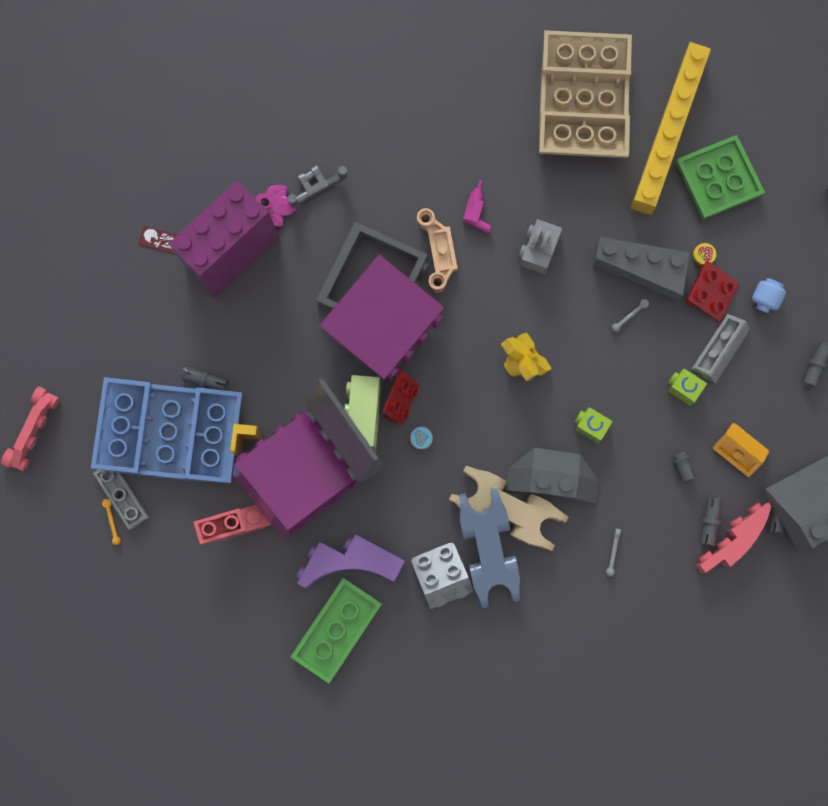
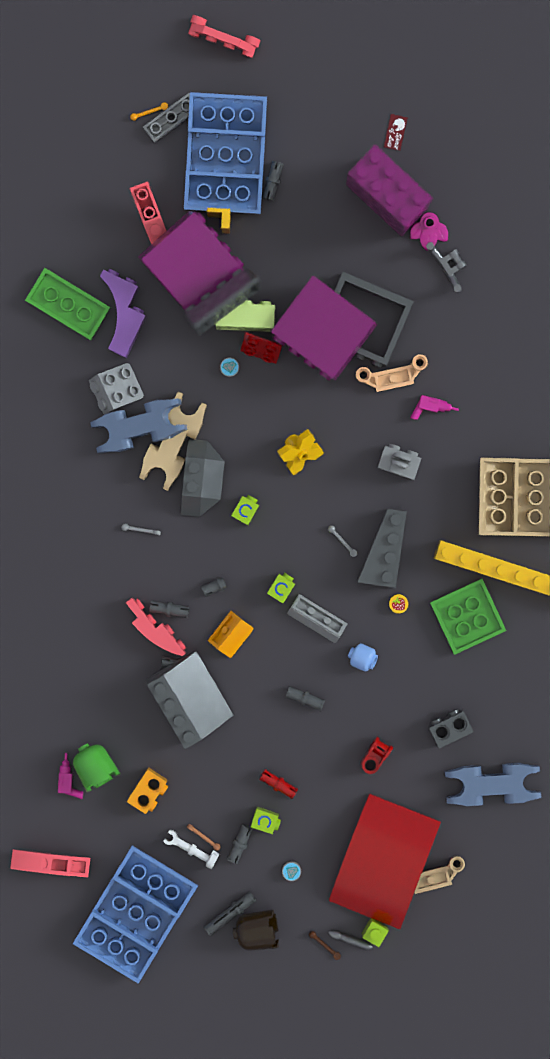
camera: 80 degrees right, 10 degrees up
(712, 291) = (365, 610): red hinge -> none

